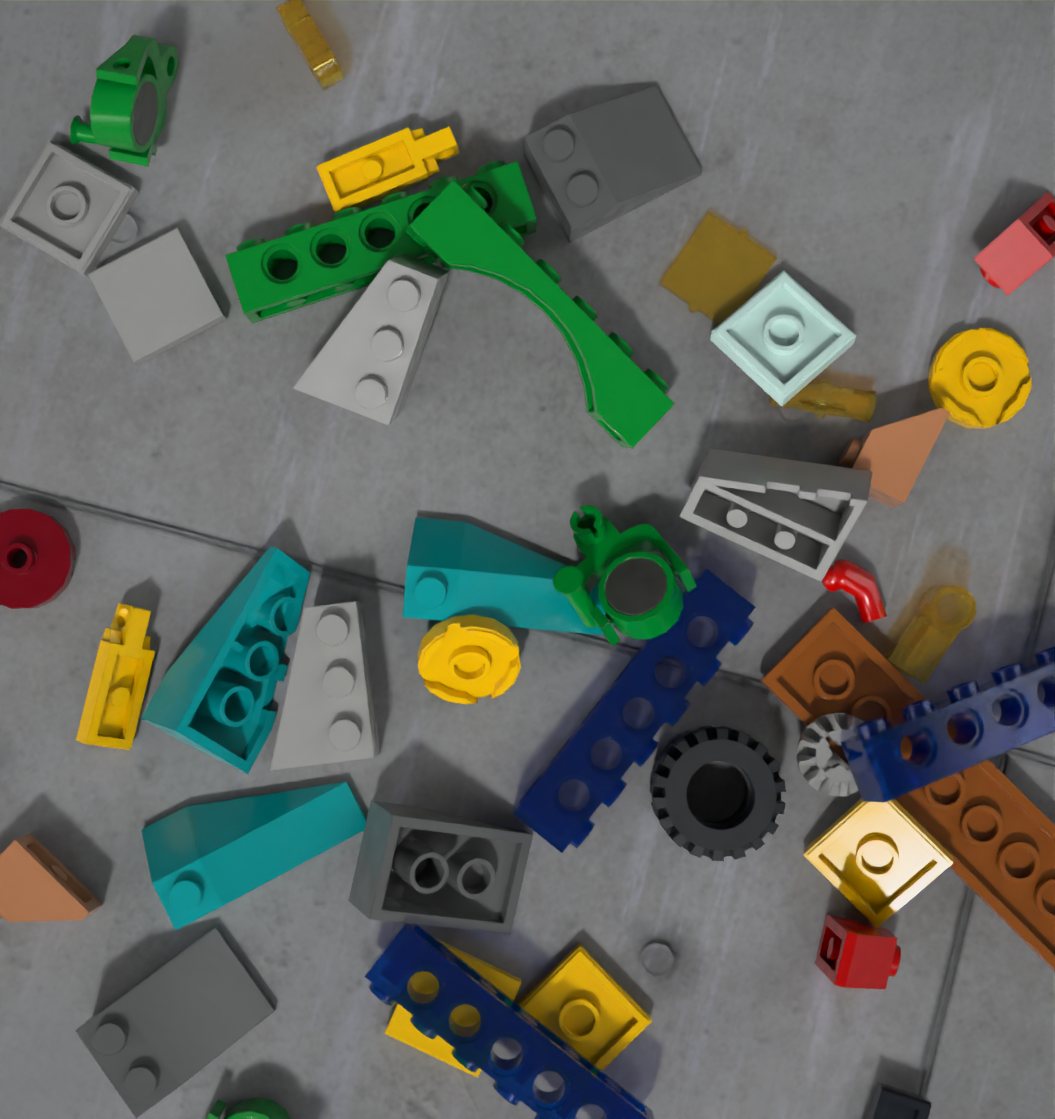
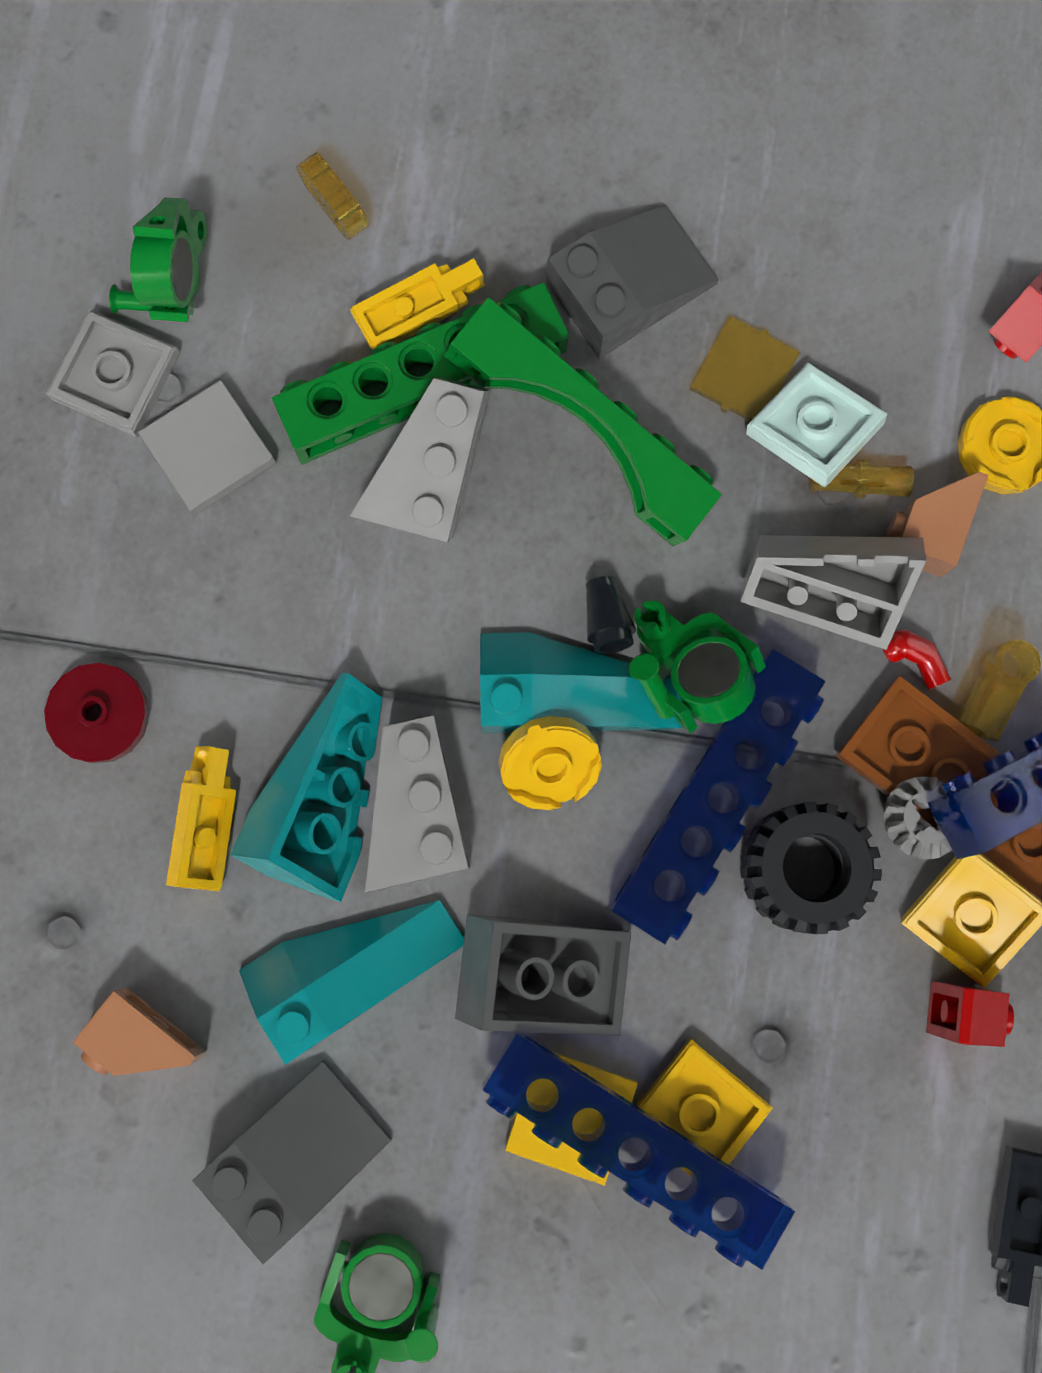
camera: 10 degrees left, 5 degrees down
(545, 515) = (607, 617): none -> black cone

